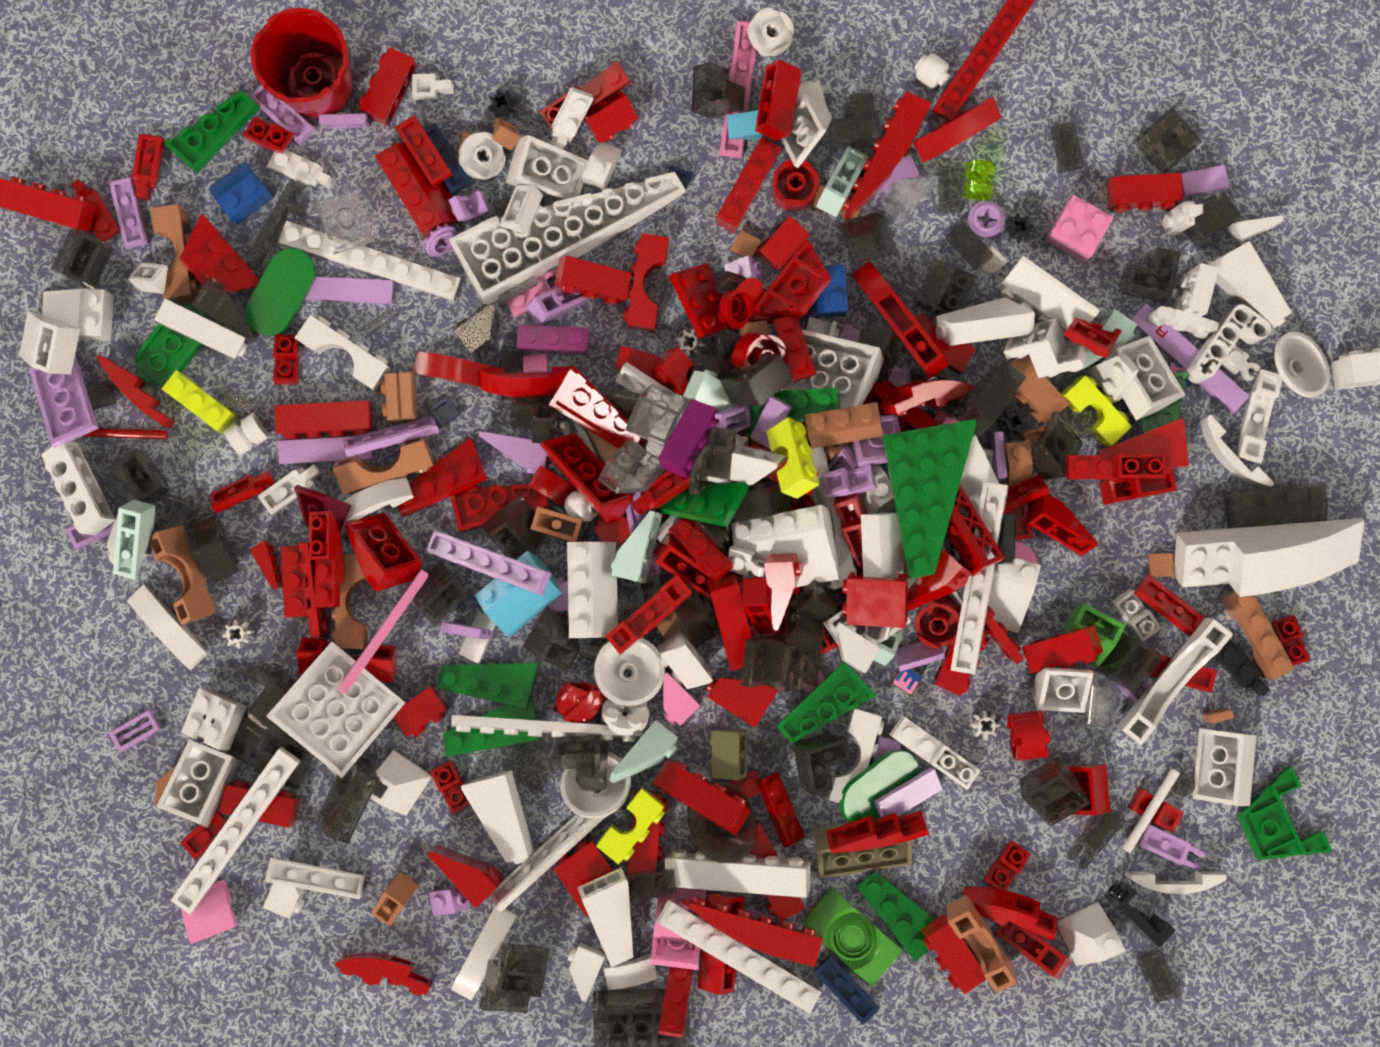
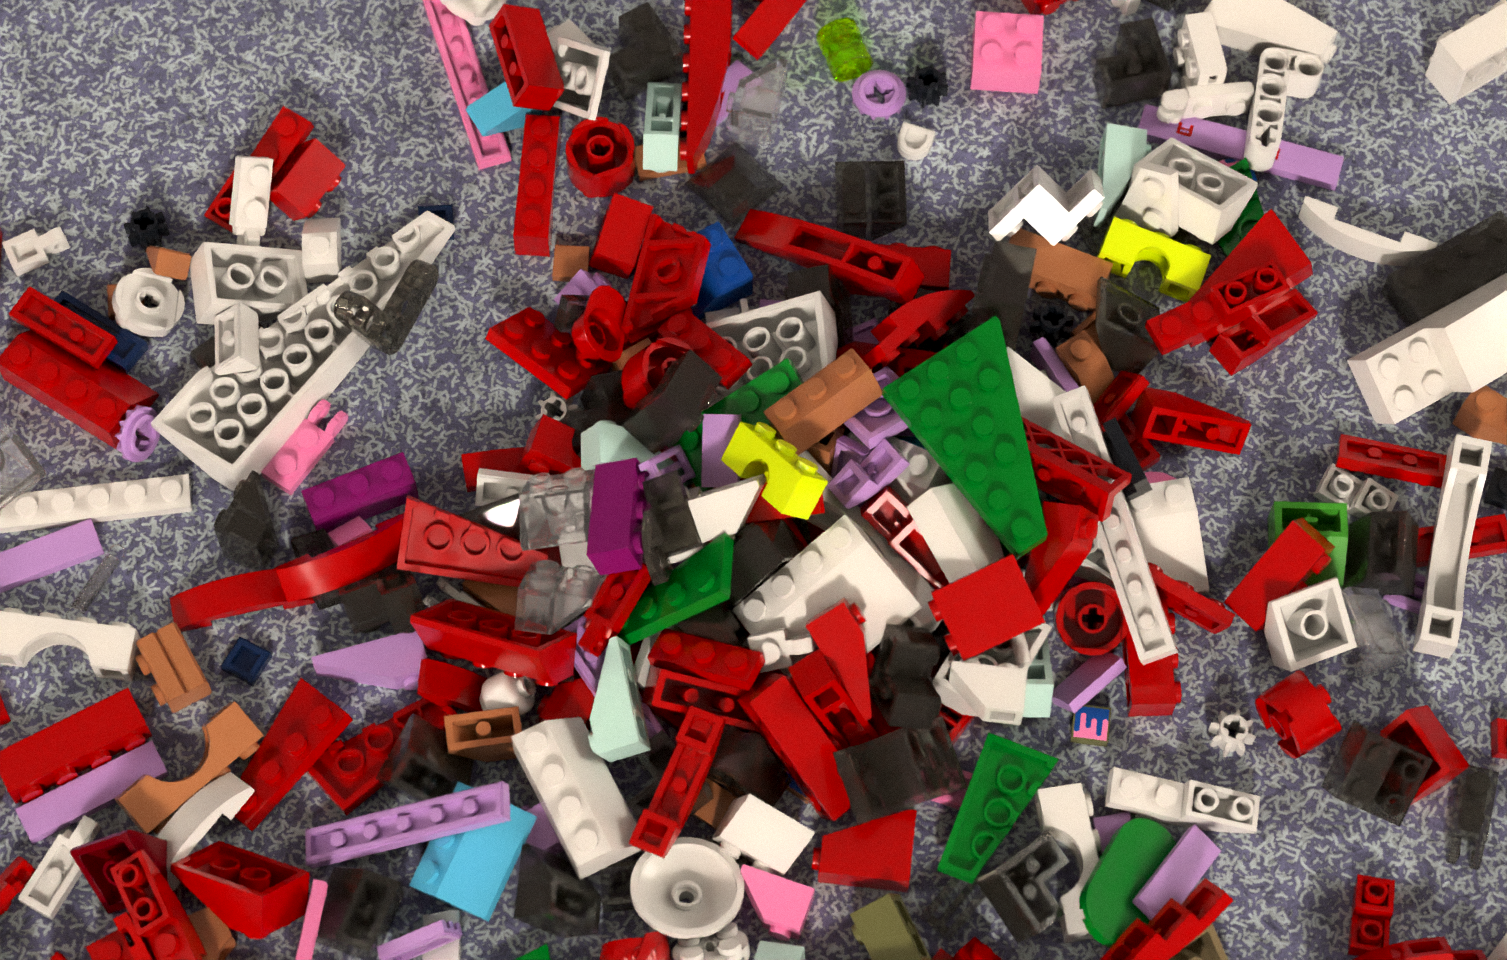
camera: 20 degrees left, 20 degrees down
(390, 436) = (182, 723): lavender tile -> none
(469, 207) = (161, 376): lavender bracket -> none
(518, 290) = (280, 449): clear piece -> none
(553, 305) = (347, 438): lavender slope -> none
(592, 280) = (379, 389): red brick -> none
(622, 237) = (418, 278): none -> clear smoke beam
(651, 253) = (468, 401): red arch -> none
(713, 92) = (436, 88): clear smoke brick -> none
(949, 189) = (812, 81): clear smoke tile -> none
(969, 246) = (874, 134): clear smoke tile -> none
(985, 322) = (946, 208): white slope -> none
(1045, 295) = (1009, 145): white slope -> none
(1092, 336) = (1092, 160): red wing -> none
(1160, 565) = (1351, 416): nougat tile -> none
(1237, 362) = (1301, 124): white plate -> none
(1257, 415) = (1368, 175): white slope -> none
(1302, 364) = (1386, 87): white dish -> none

